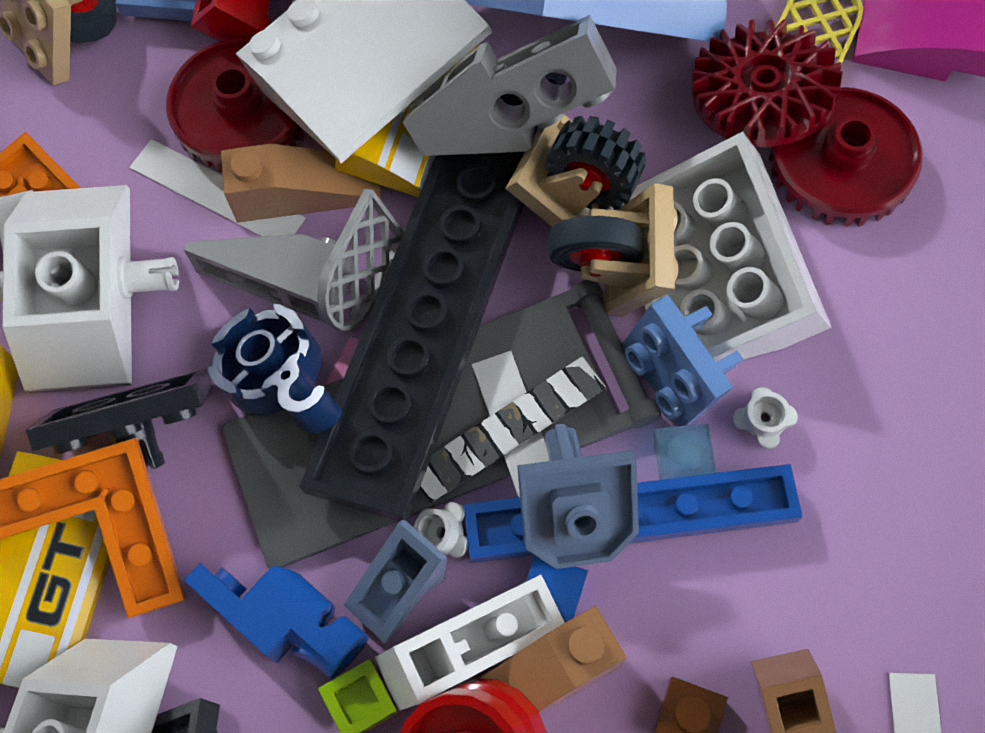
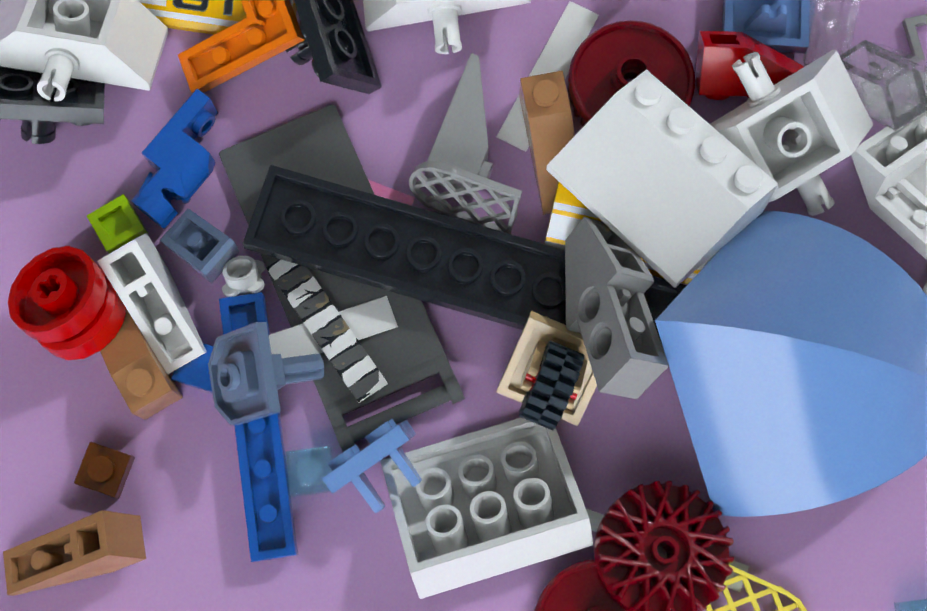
camera: 90 degrees right, 10 degrees up
(271, 366) = (374, 134): dark blue piece -> none
(623, 249) = (474, 411): tan plate -> none
(770, 403) = (329, 539): white plate -> none

